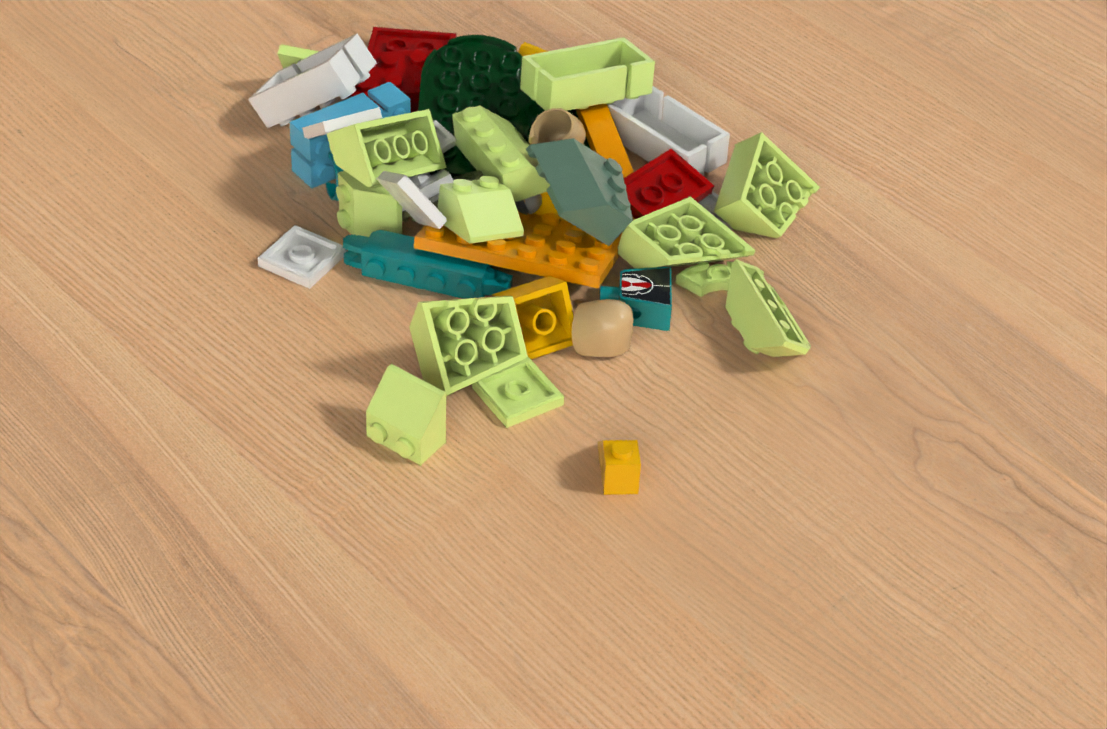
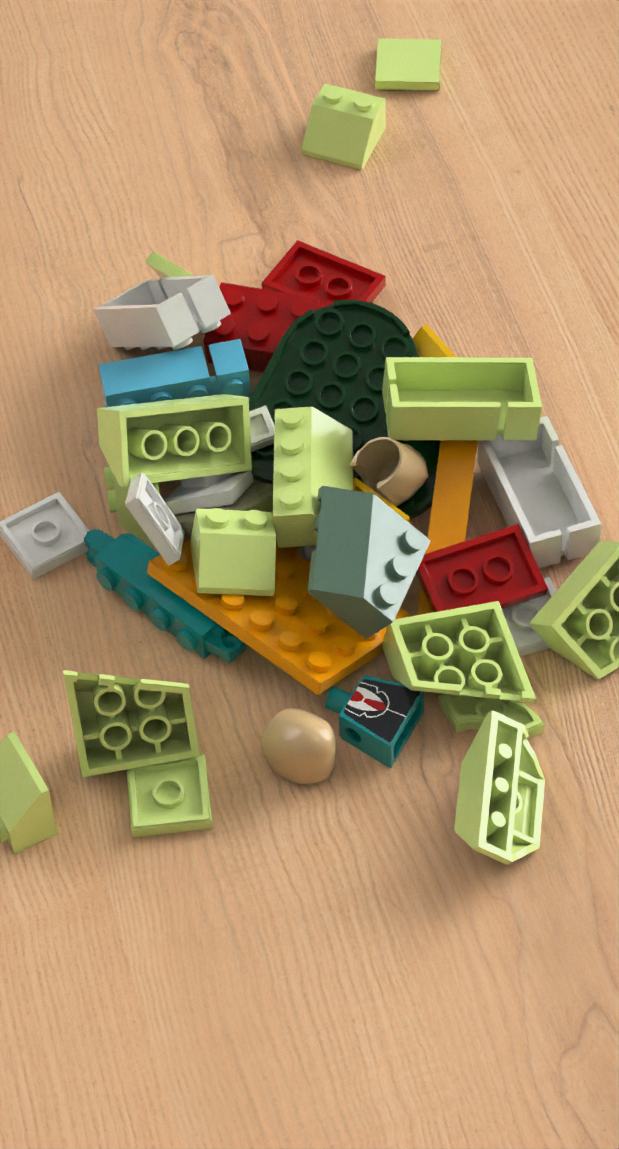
camera: 30 degrees right, 10 degrees up
(334, 124) = (136, 391): white tile -> none
(543, 315) = (232, 706): yellow slope -> none
(619, 466) = (215, 933): yellow slope -> none

